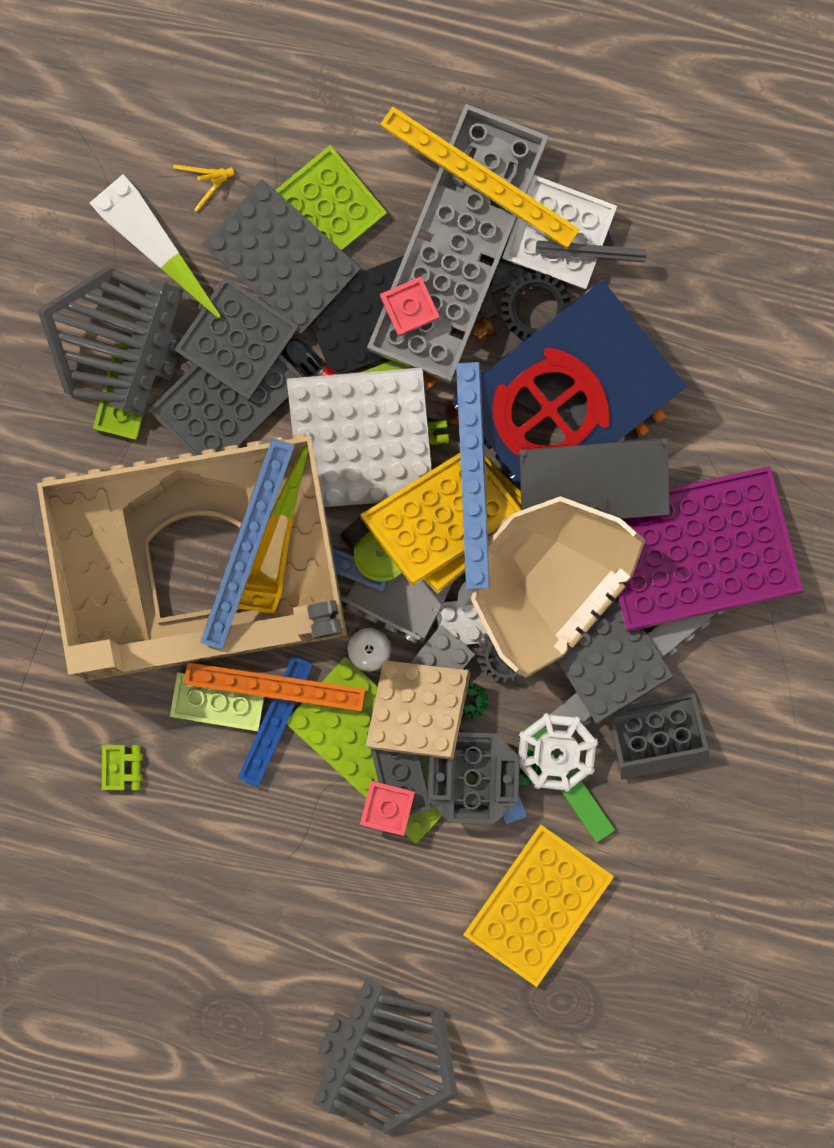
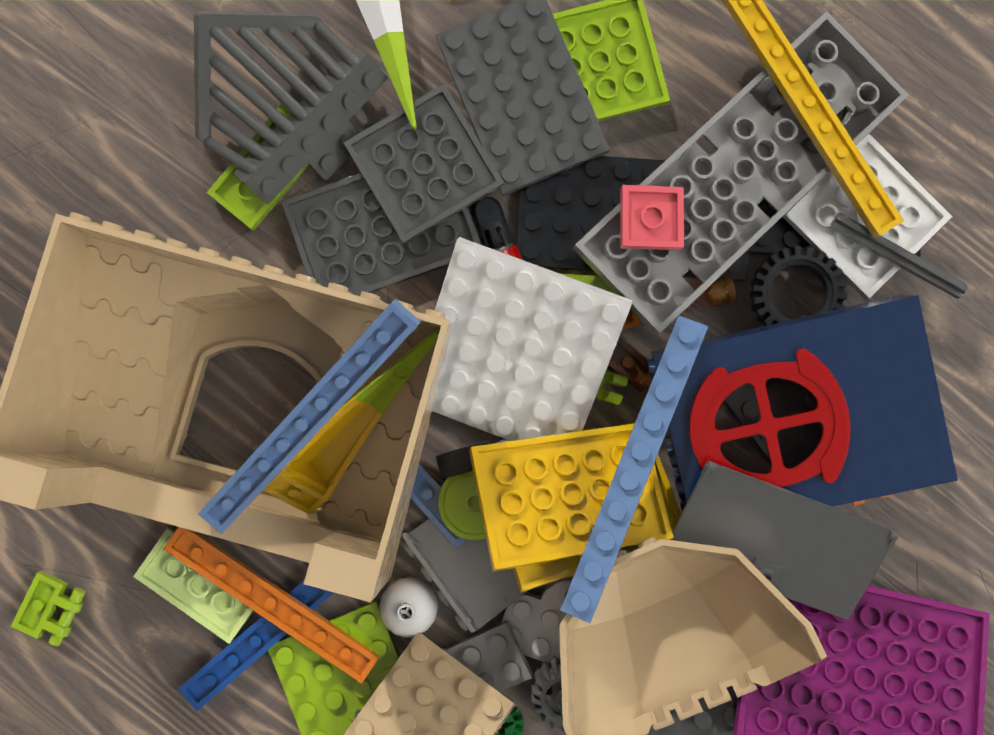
camera: 25 degrees right, 0 degrees up
(324, 619) = (346, 585): dark grey wheel -> none

